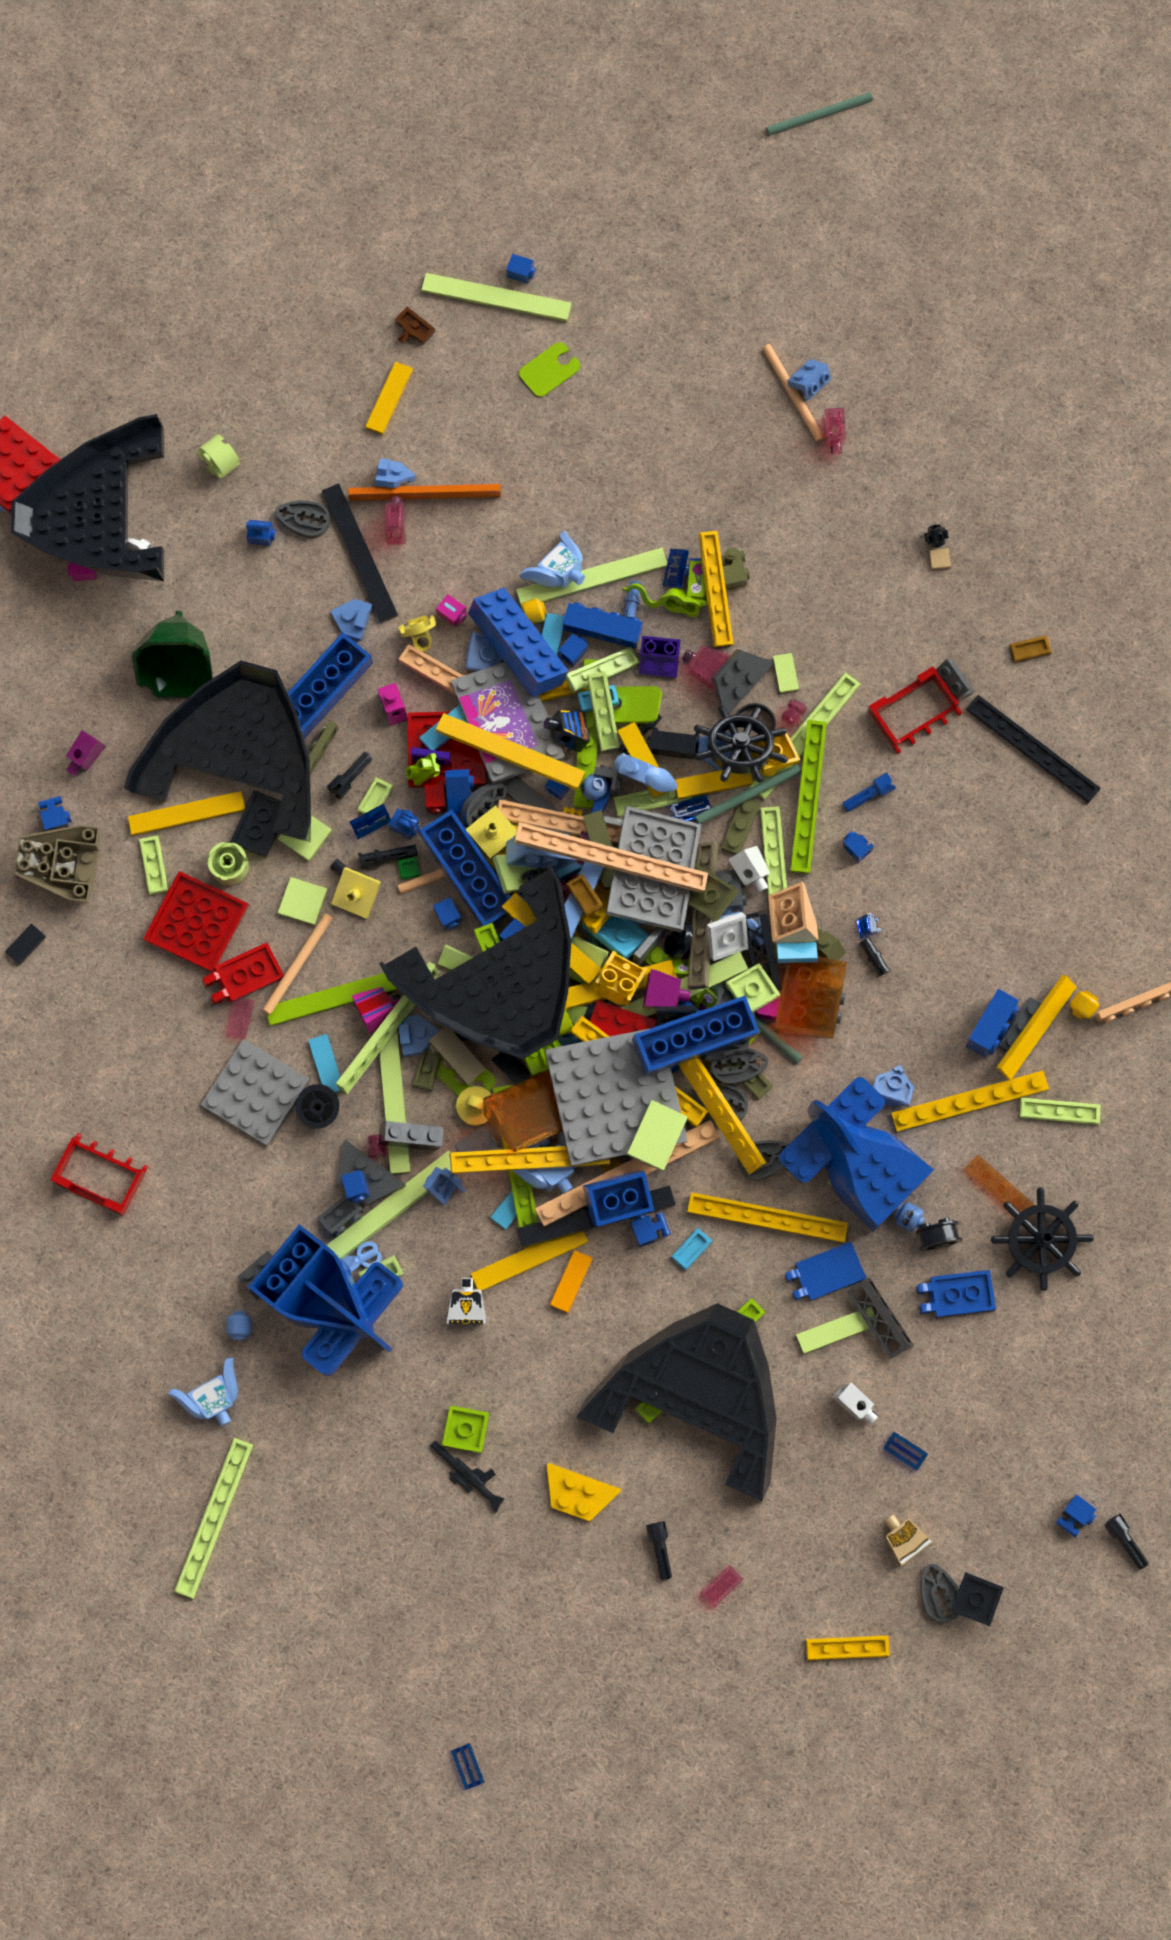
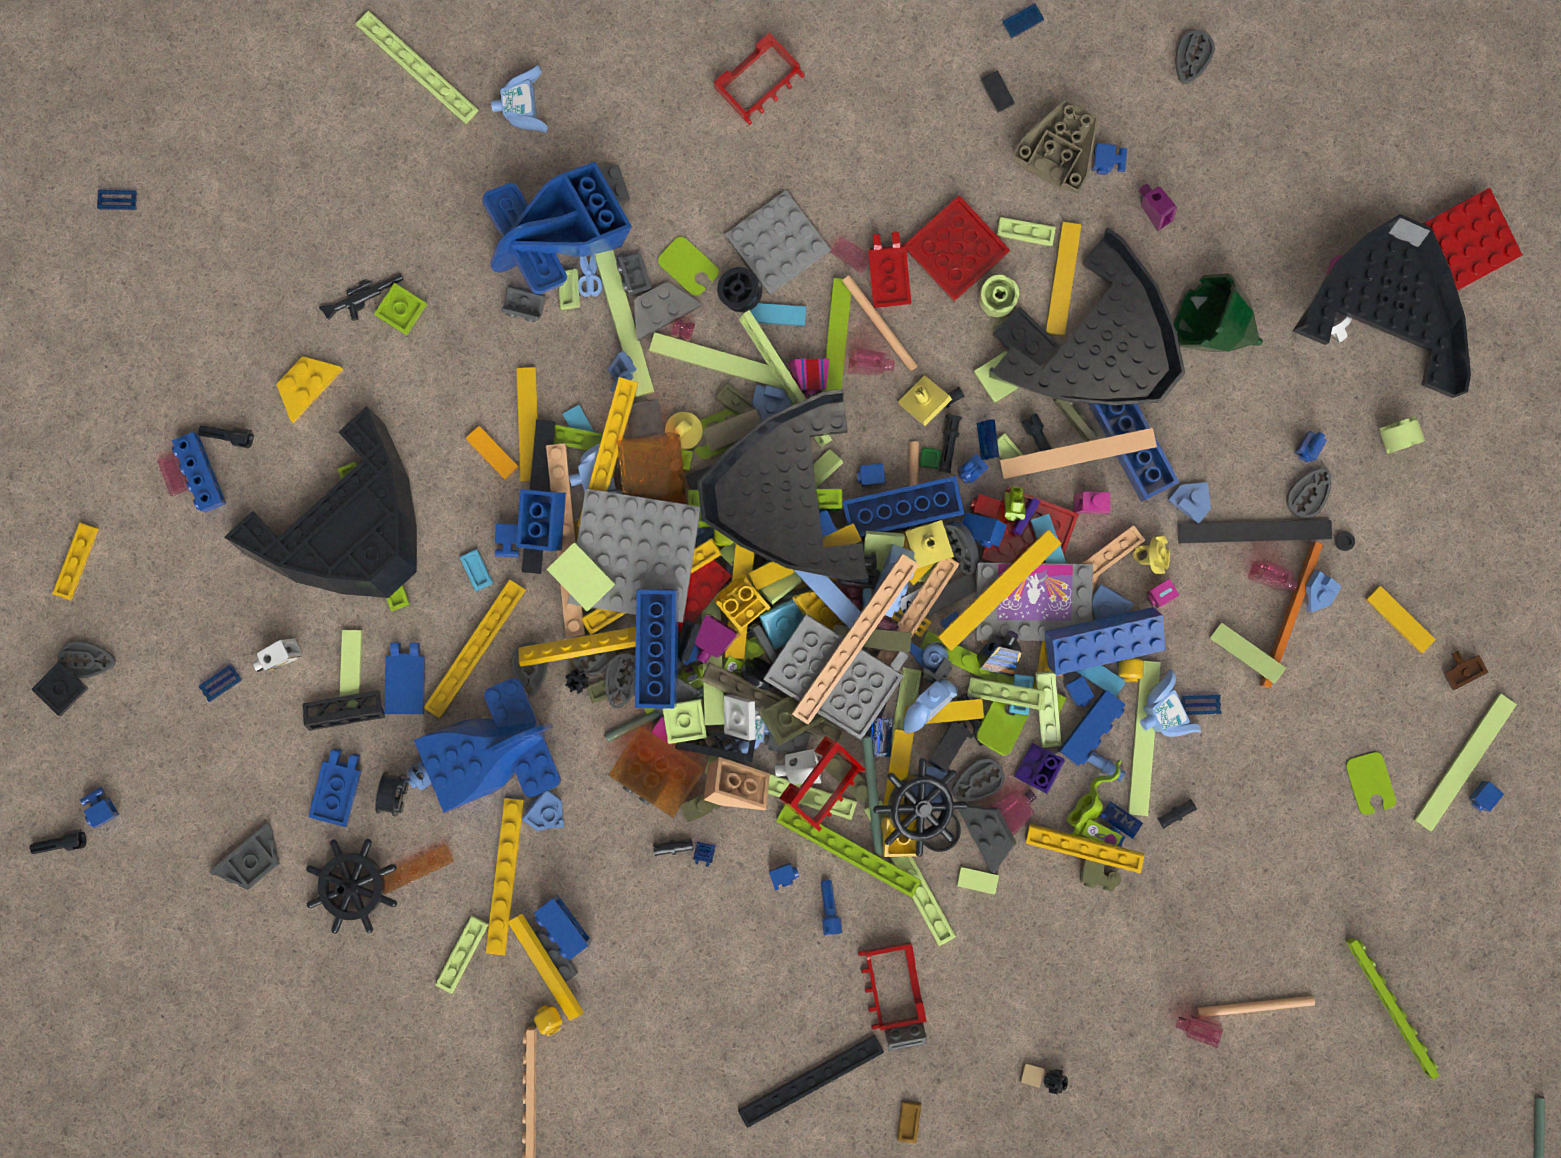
camera: 105 degrees right, 10 degrees up
(239, 1325) = (572, 148): medium blue head -> none
(302, 901) = (937, 351): yellowish green tile -> none
(311, 1174) = (684, 262): none -> lime piece
(336, 472) = (1344, 541): none -> black tile
(341, 957) = (862, 363): none -> clear pink torso
(352, 732) = (1078, 453): none -> light nougat tile
(355, 1186) = (650, 293): blue brick -> none
(410, 1135) = (677, 360): brick -> none
(413, 1309) = (524, 304): none -> dark grey bracket
(466, 1305) = (506, 351): torso -> none
(476, 515) = (1248, 653): none -> yellowish green tile
(534, 526) = (1217, 704): none -> clear blue tile
(584, 895) = (830, 601): pearl gold tile -> none
(649, 523) = (1177, 813): none -> black pin
(699, 697) = (987, 788): none -> dark grey piece
(708, 1559) = (198, 472): none -> blue brick
(747, 272) = (1397, 1014): none -> lime plate
(752, 1106) = (577, 676): none -> black gear
(778, 857) = (792, 794): none -> red hinge
(794, 712) = (935, 872): clear pink wheel -> none
(796, 952) = (700, 775): medium azure tile -> none
(810, 378) = (1263, 1029): medium blue bracket -> none
(905, 1539) = (142, 650): torso -> none
(1061, 1347) = (250, 860): none -> dark grey wing

